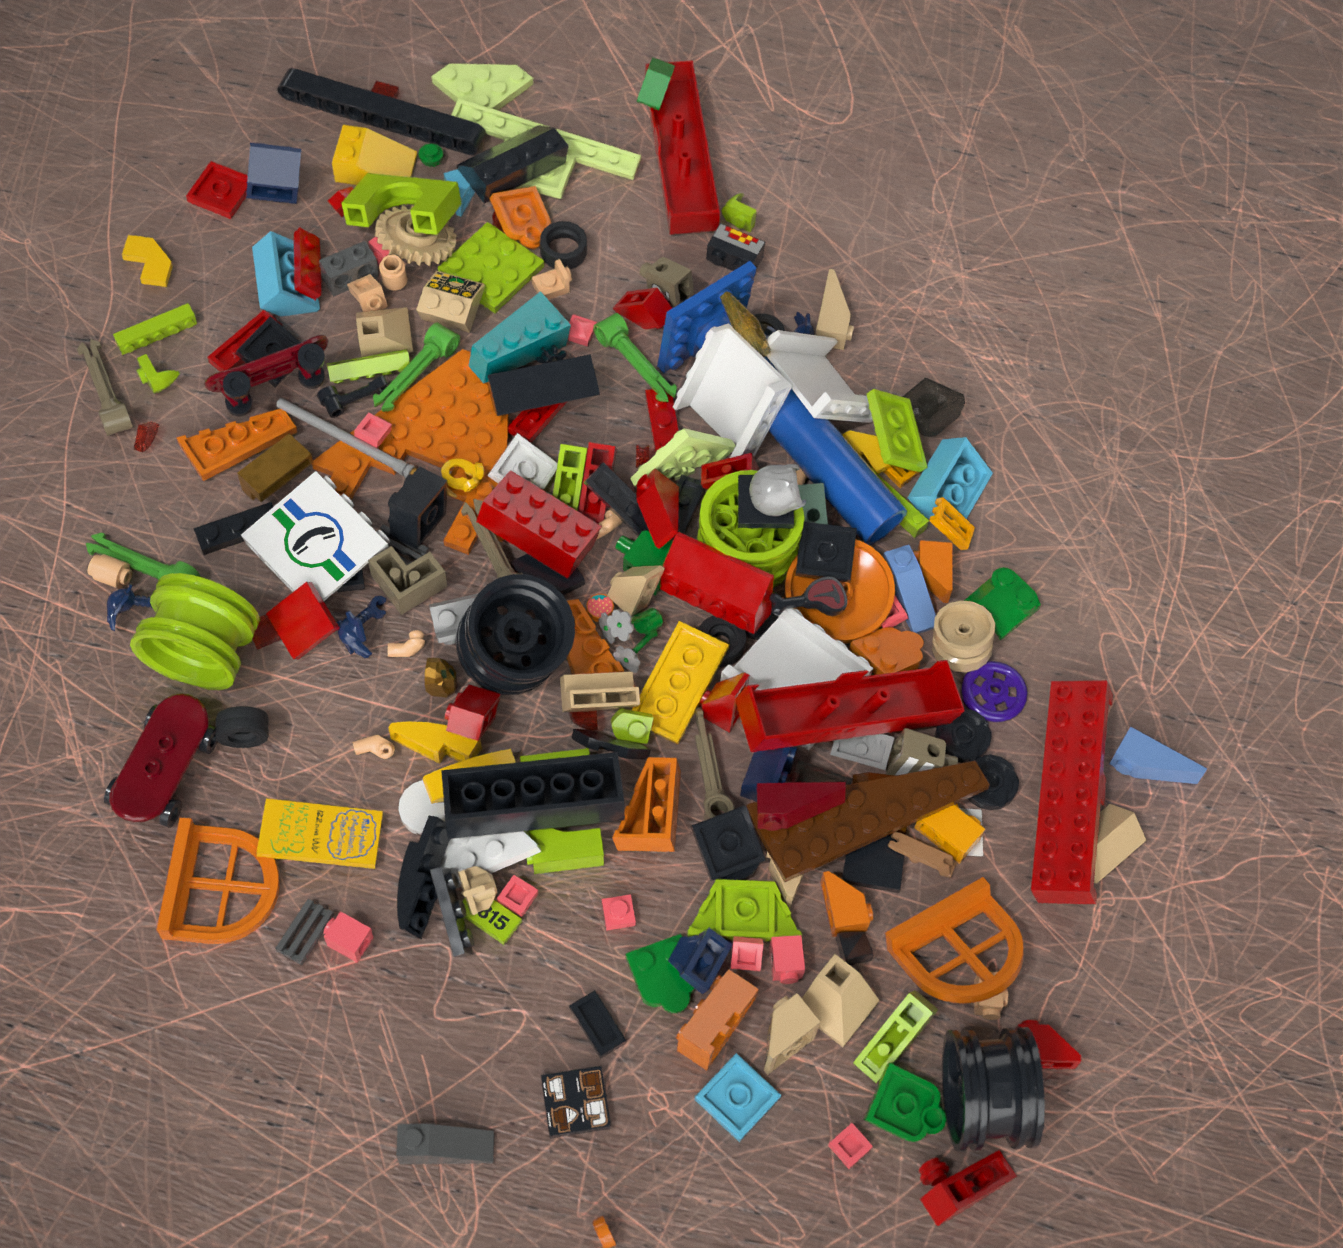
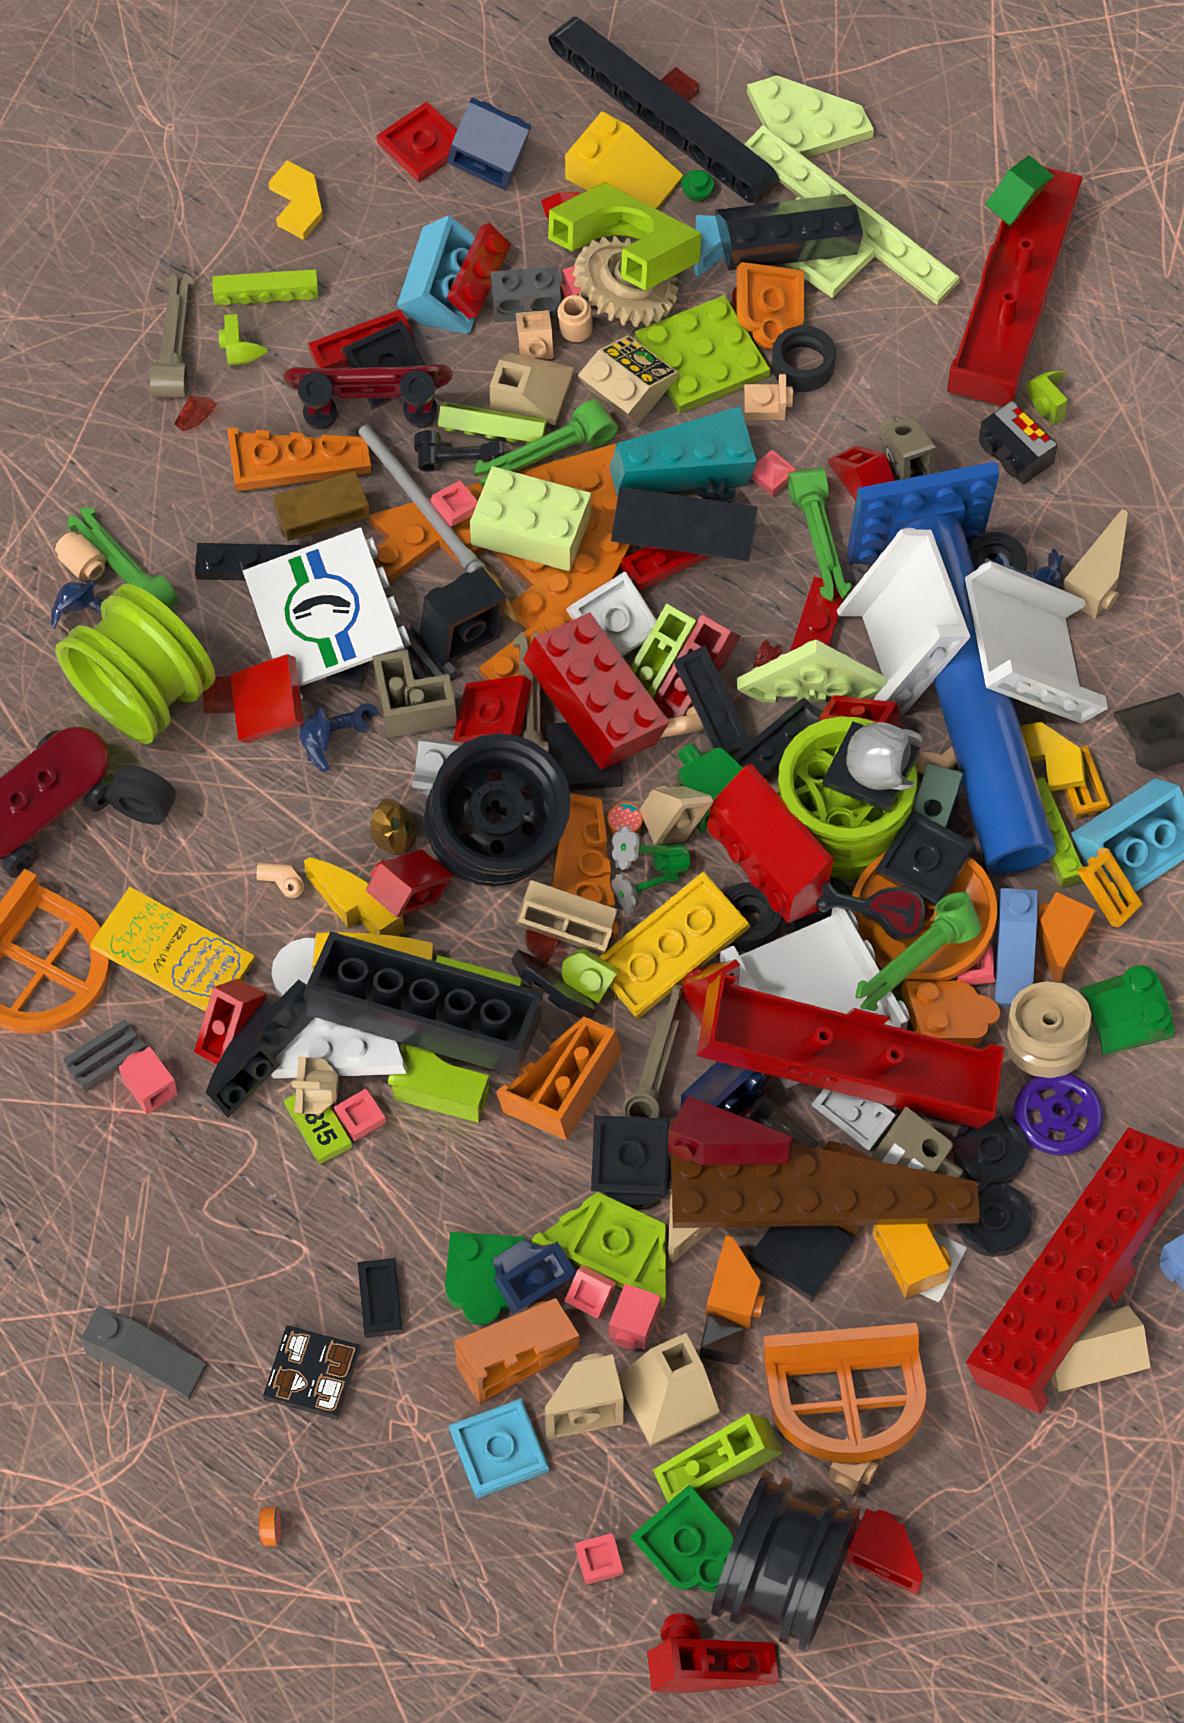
camera: 30 degrees right, 0 degrees up
(385, 866) = (225, 1015): none -> red slope
(408, 648) = (376, 779): light nougat arm -> none
(432, 421) = (530, 518): none -> yellowish green brick
(453, 911) = (274, 1100): black plate -> none
(470, 566) = (492, 707): none -> red tile
(475, 470) = (531, 607): yellow piece -> none
(618, 912) = (467, 1183): coral plate -> none
(659, 506) = (750, 723): red slope -> none
(745, 323) = (953, 538): clear yellow tile -> none
(868, 588) = (954, 923): none -> bright green piece
(896, 430) = (1095, 744): lime plate -> none
(923, 853) = (863, 1267): medium nougat piece -> none

